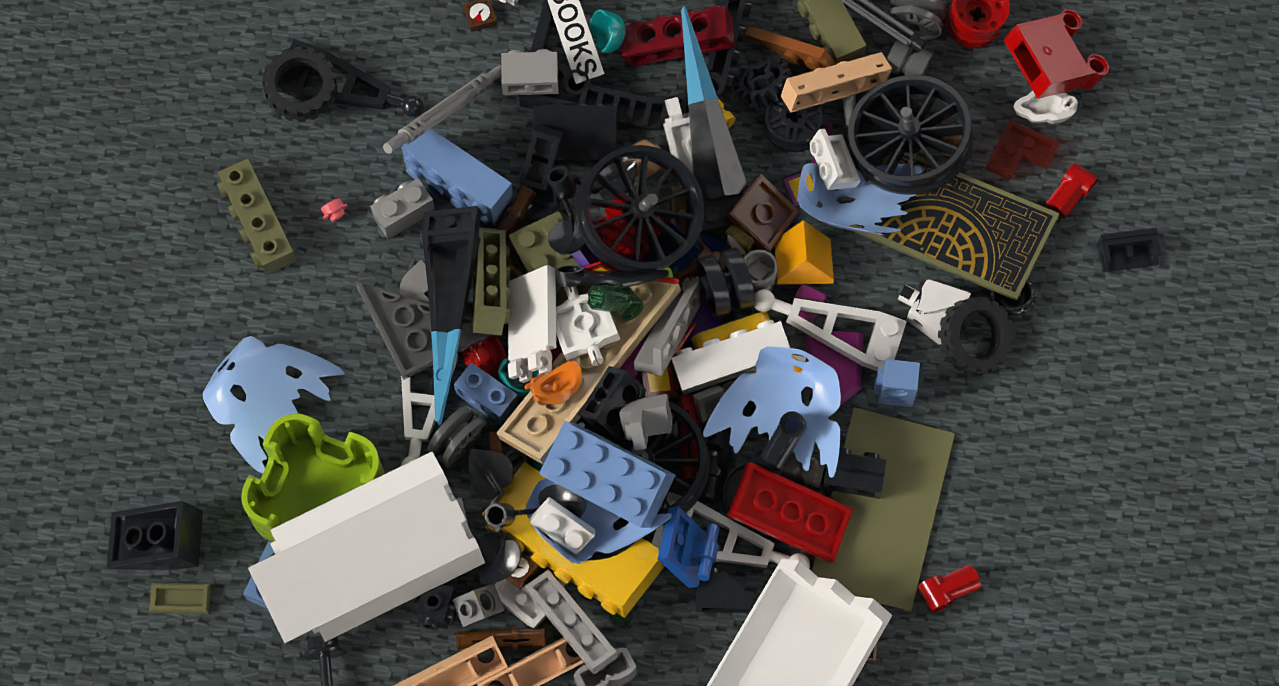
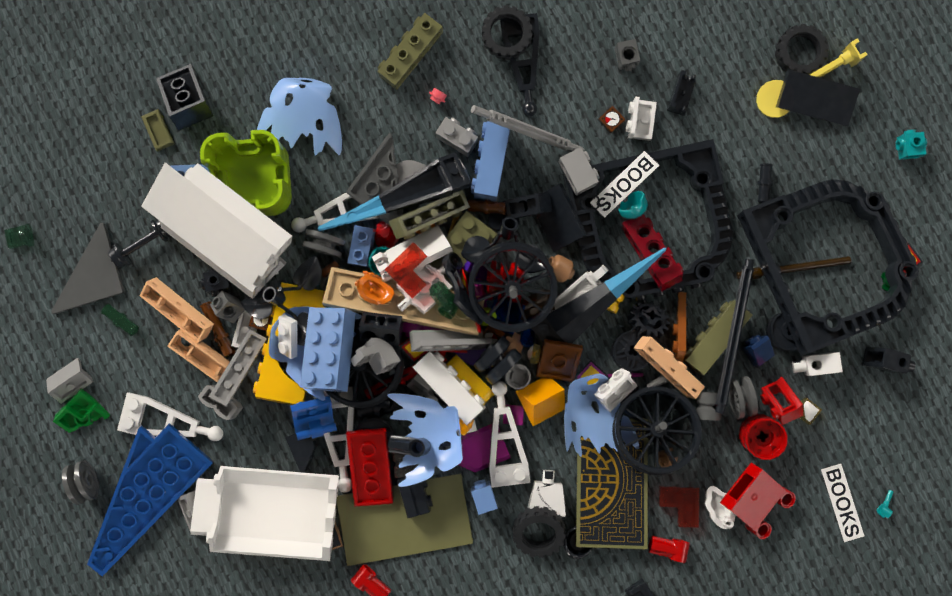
camera: 65 degrees right, 15 degrees up
(553, 333) = (402, 270): none -> clear red plate

